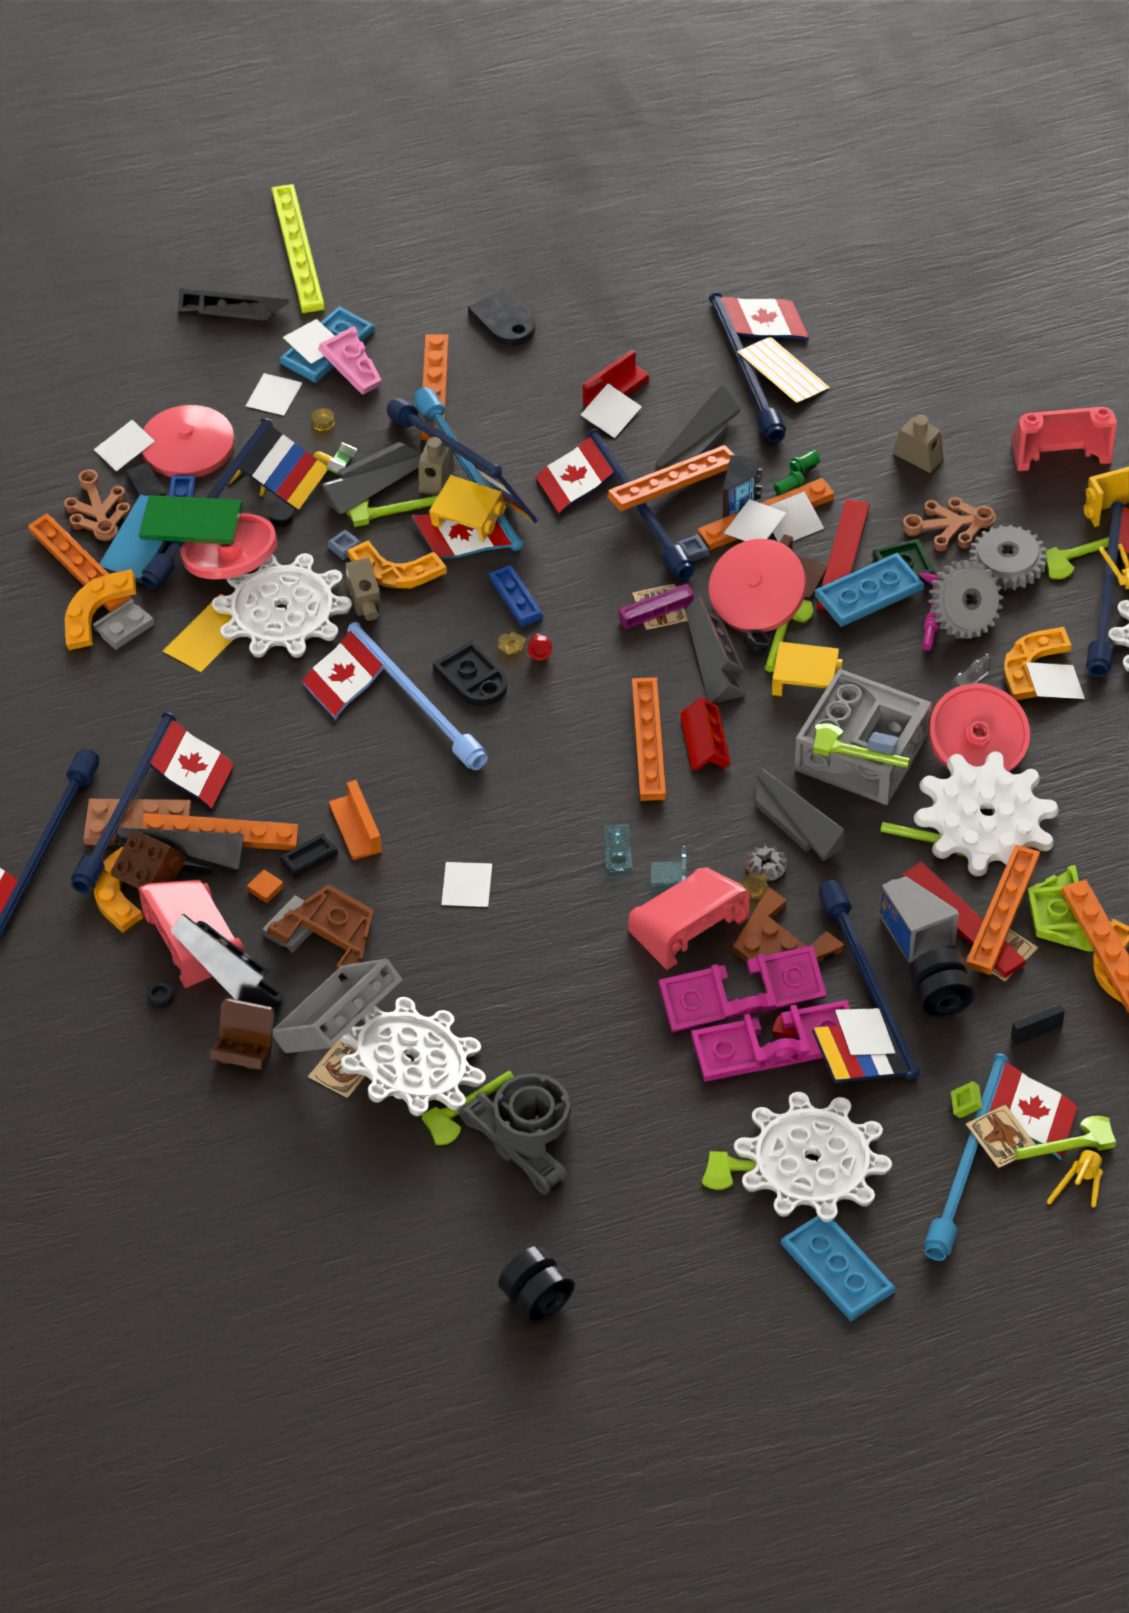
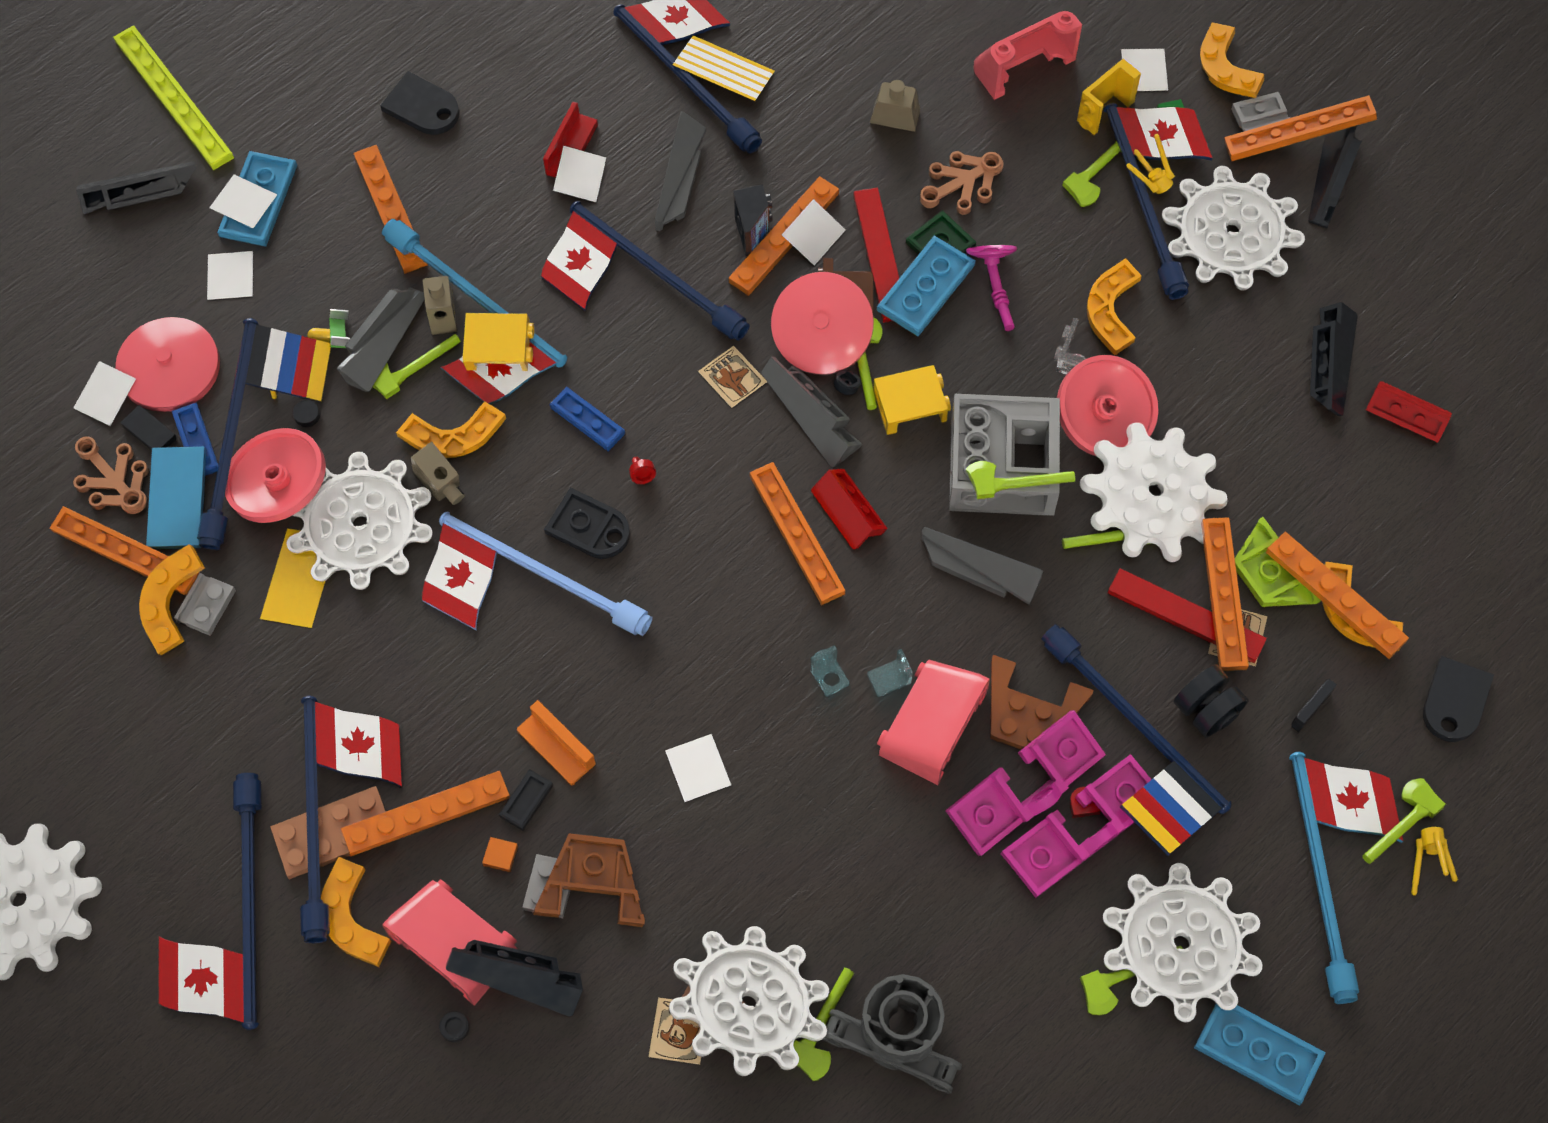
camera: 25 degrees left, 15 degrees up
(147, 861) = (372, 886): reddish brown bracket -> none
(191, 519) = (223, 462): green tile -> none
(201, 848) = (398, 852): black wedge -> none
(244, 1034) = (568, 1046): reddish brown bracket -> none
(322, 418) = (295, 286): clear yellow tile -> none
(336, 1006) = (677, 987): light grey window -> none
(342, 543) = (387, 424): sand blue tile -> none
(349, 358) = (291, 209): bright pink wing -> none
(407, 415) = (381, 255): dark blue flag -> none
(511, 643) = (614, 470): clear yellow plant -> none
(656, 606) = (731, 379): magenta piece -> none
(670, 478) = (679, 231): orange plate -> none
(694, 547) = (734, 298): sand blue tile -> none
(754, 521) = (784, 252): white sticker -> none
(755, 885) = (978, 651): clear yellow plant -> none
(770, 870) = (966, 635): light grey gear -> none
(789, 483) = (792, 192): green pin -> none
(804, 462) = (791, 169): green pin -> none
(865, 1031) = (1165, 783): white sticker -> none
(882, 743) = (1041, 464): sand blue tile -> none
(917, 918) = (1151, 638): light grey slope -> none
(965, 599) = (1027, 265): light grey gear -> none
(966, 1099) = (1290, 816): lime tile -> none
(1000, 1135) = (1341, 842): sticker -> none
(1011, 555) = (1036, 201): light grey gear -> none
(1055, 680) = (1144, 319): white sticker -> none

